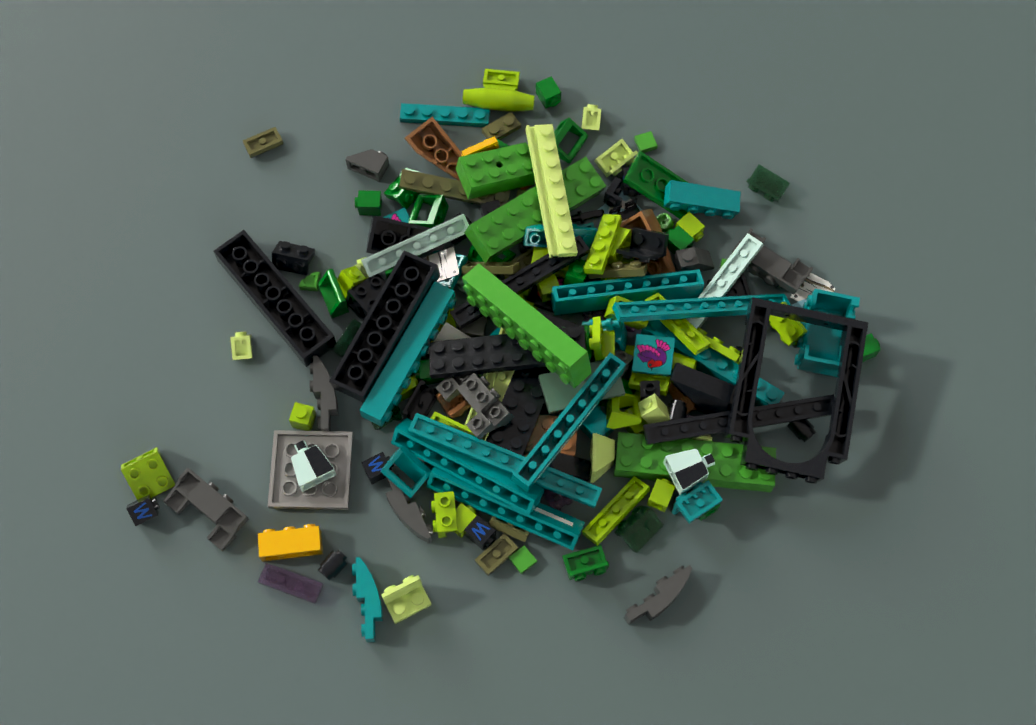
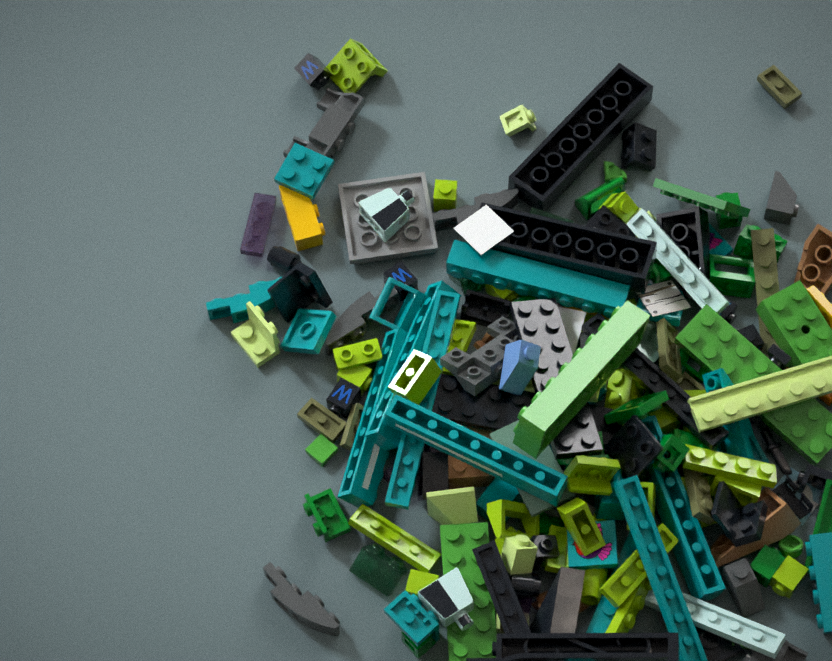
camera: 85 degrees right, 5 degrees down
(252, 530) = (304, 171): none -> teal plate
(358, 383) = (483, 229): none -> white sticker
(366, 210) = (701, 200): none -> green plate
(367, 552) = (297, 291): none -> black bracket
(411, 552) = (308, 331): none -> teal plate
(495, 458) = (415, 377): none -> lime brick
(496, 375) = (519, 366): none -> medium blue slope
(519, 188) = (779, 357): none -> black plate
(546, 295) = (636, 406): none -> green plate
(584, 303) = (634, 448): none -> black bracket
(592, 280) = (675, 454): none -> green brick
(641, 356) = (581, 525): none -> lime slope

